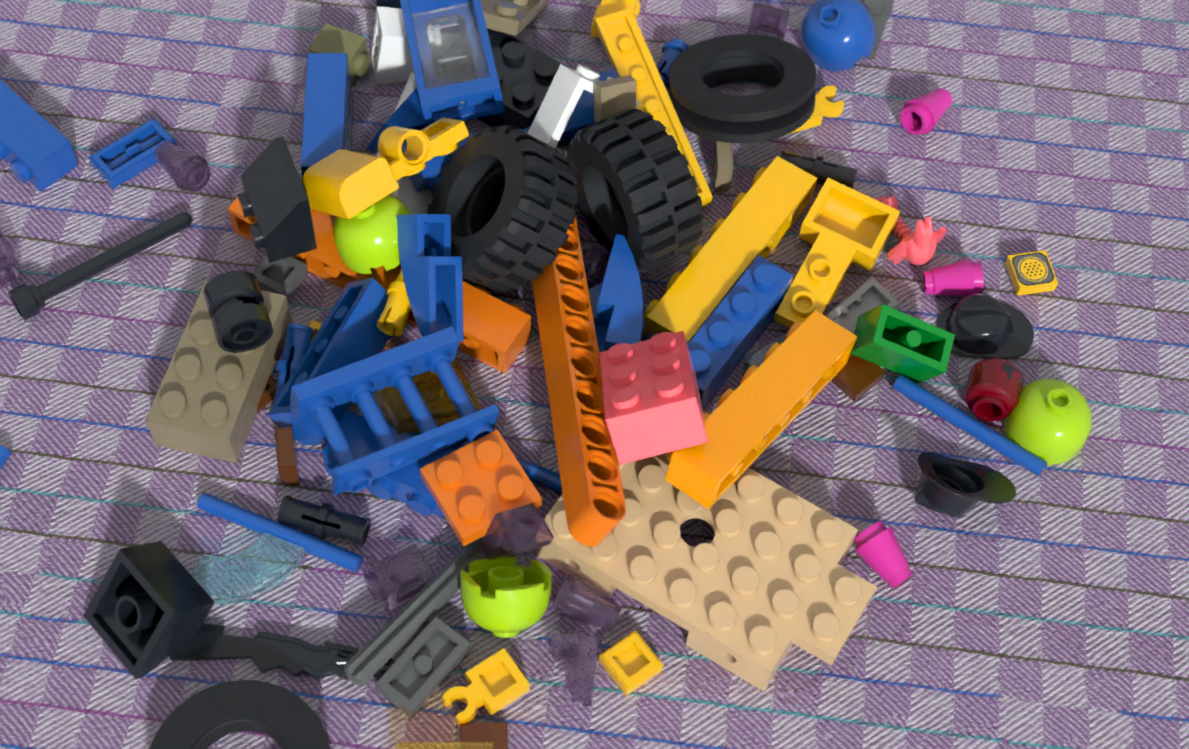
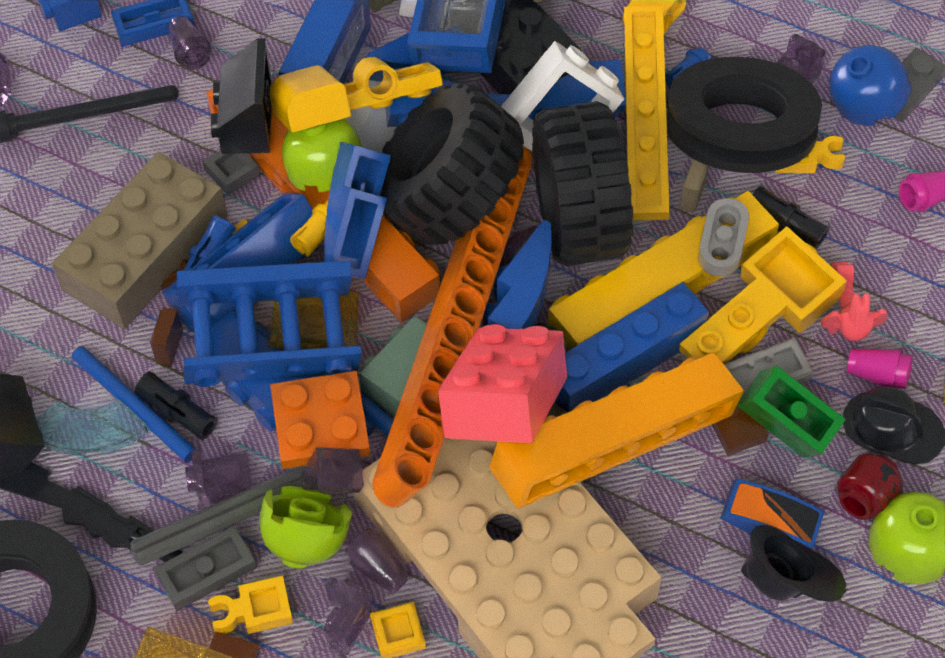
camera: 25 degrees right, 0 degrees up
(238, 311) = (164, 189): black wheel -> none
(527, 418) = (386, 374): none -> sand green brick
(614, 96) = (595, 85): dark tan tile -> none
(780, 206) = (722, 239): none -> light grey plate
(883, 554) = (685, 610): dark pink cone -> none
(903, 439) = (758, 505): none -> slope
(969, 425) = (833, 516): blue bar -> none

